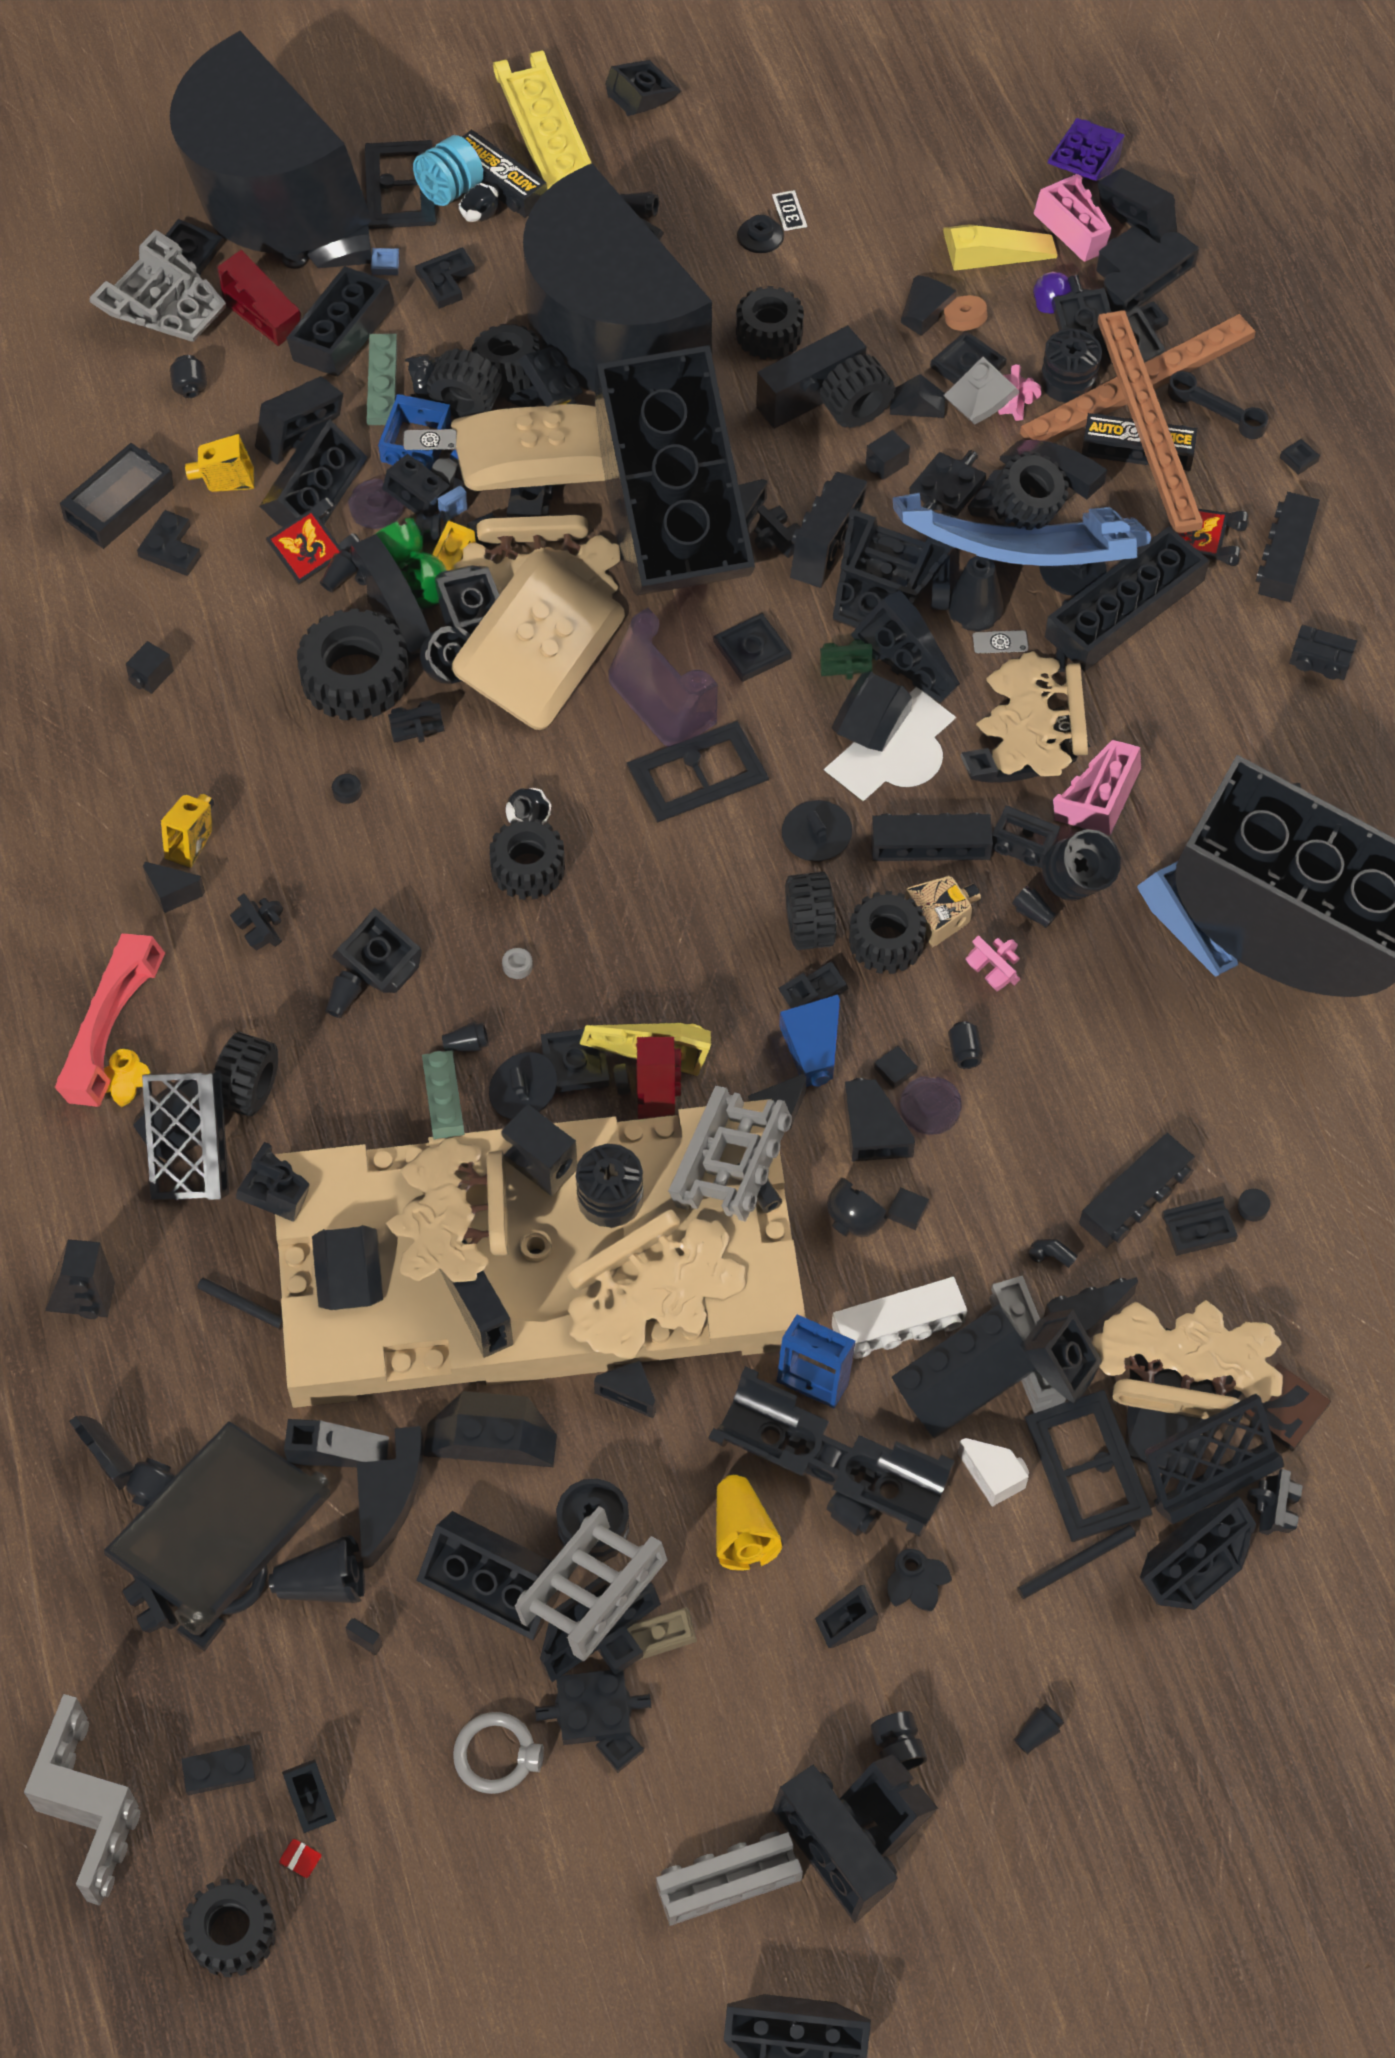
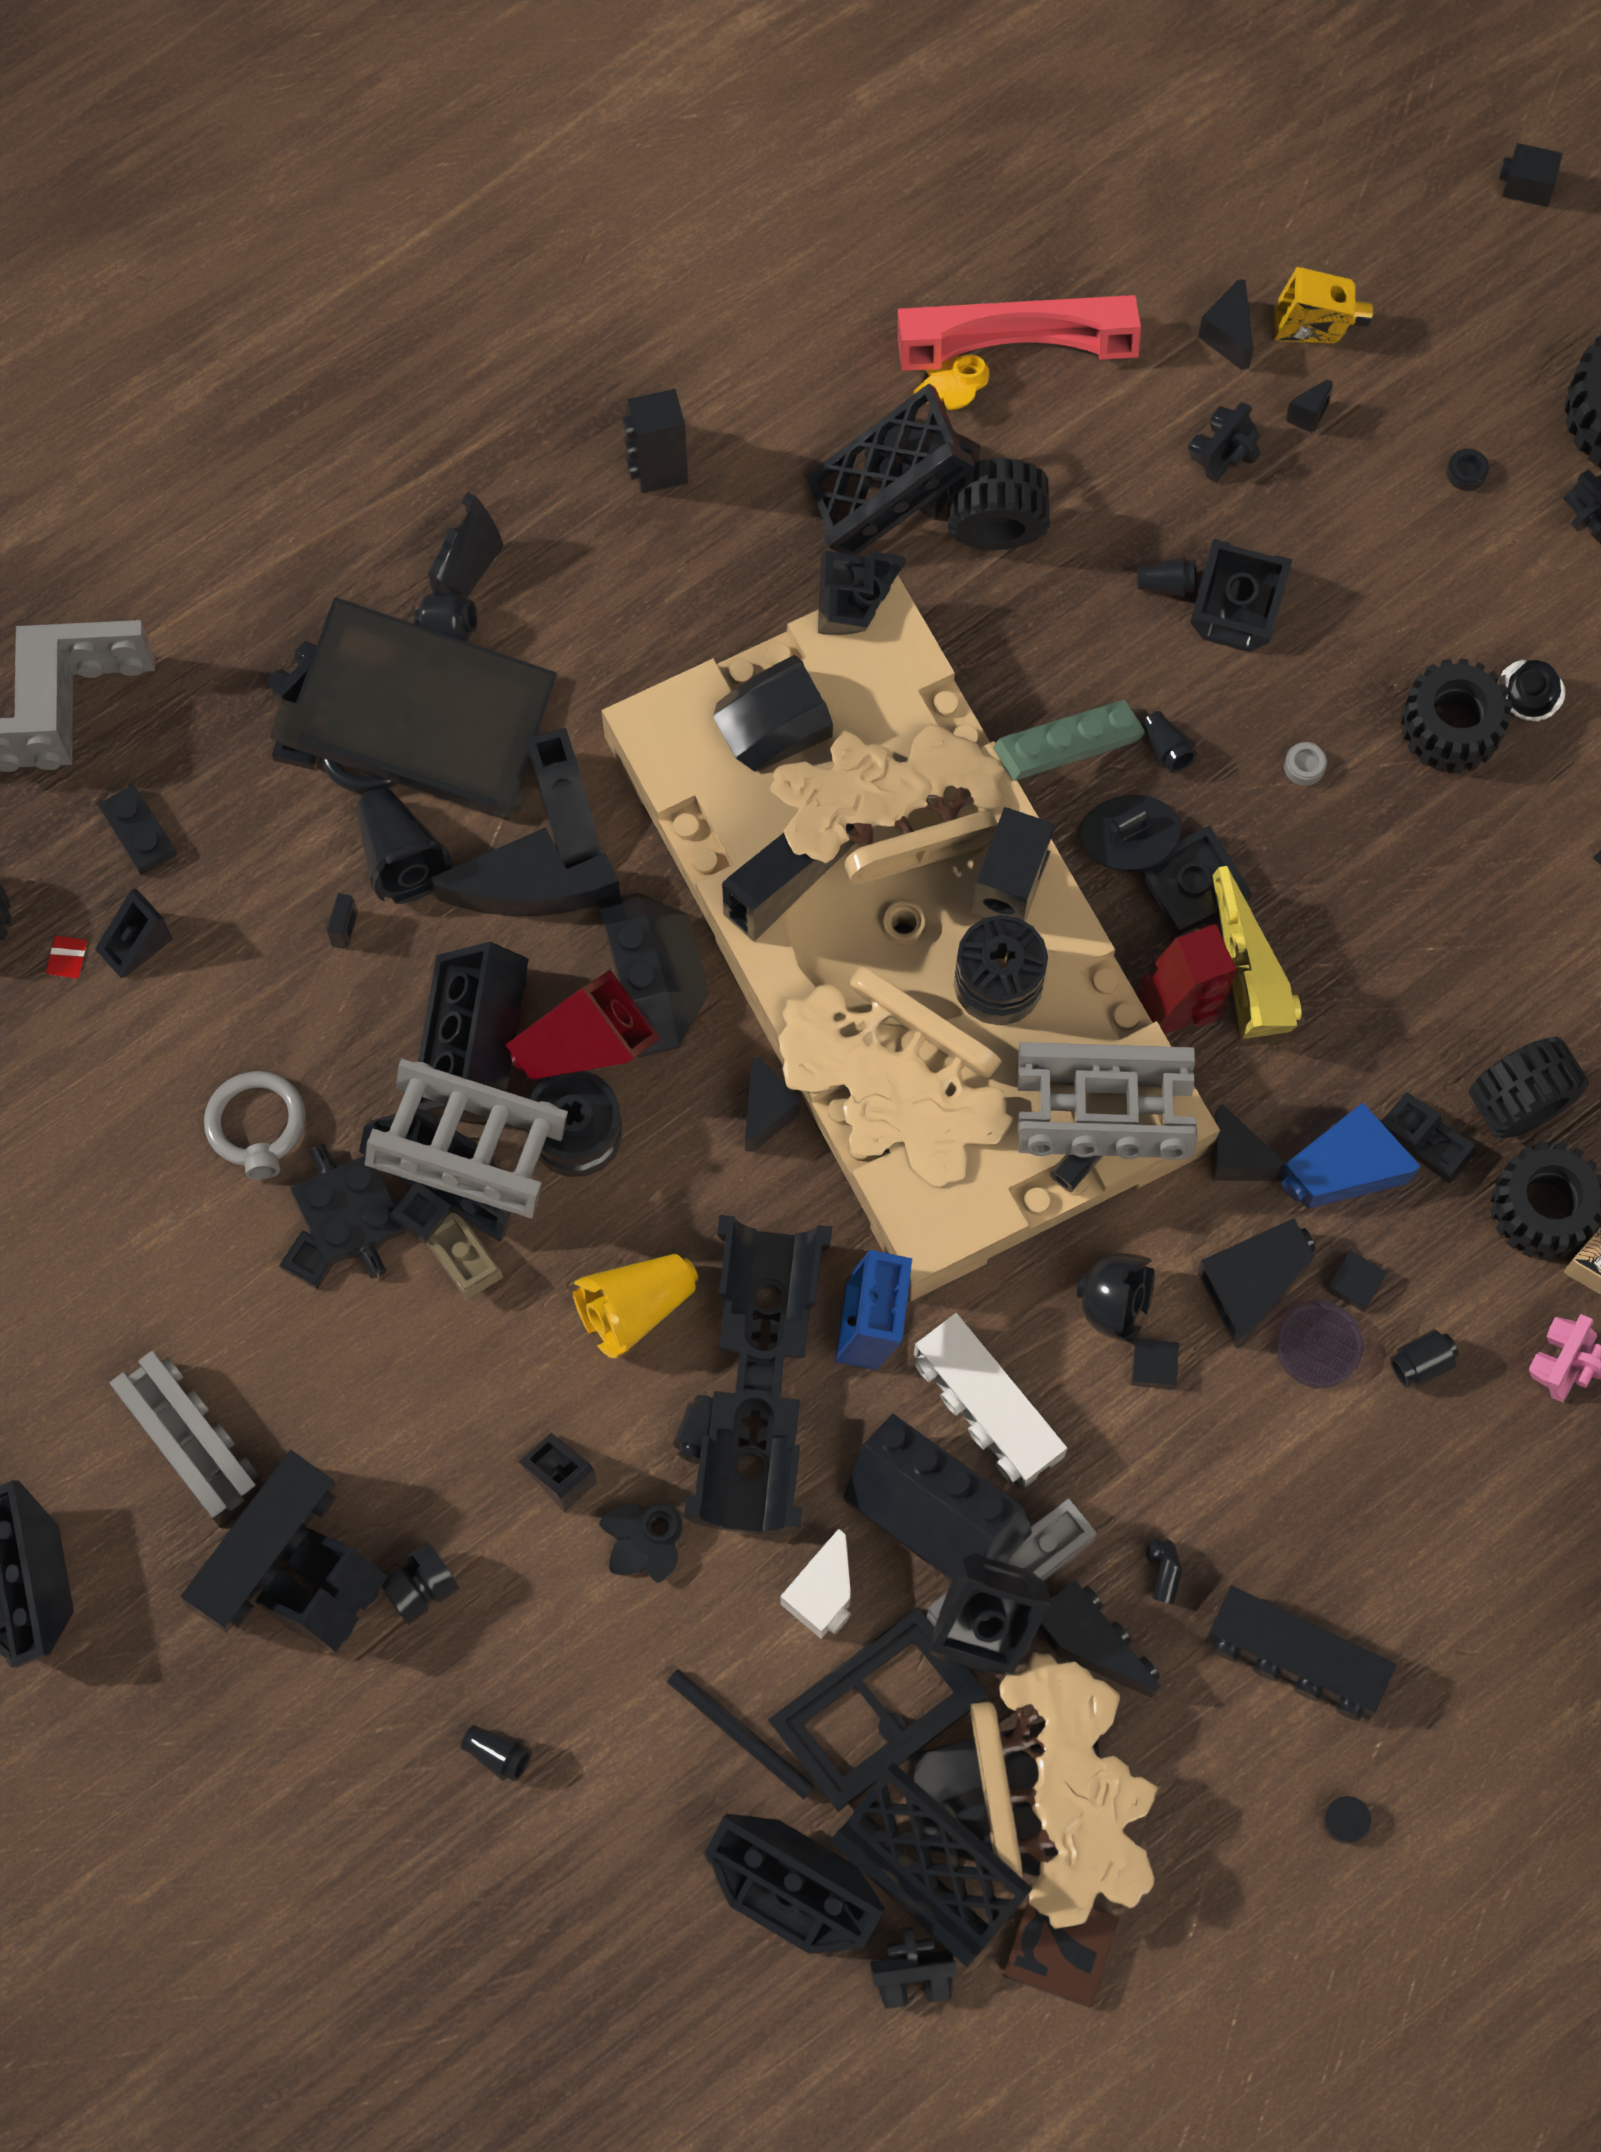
camera: 70 degrees right, 10 degrees up
(240, 1303) = (714, 616): black bar -> none
(259, 861) = (1309, 407): none -> black slope
(534, 1485) = (585, 1032): none -> dark red slope
(1199, 1226) = (1282, 1753): black plate -> none

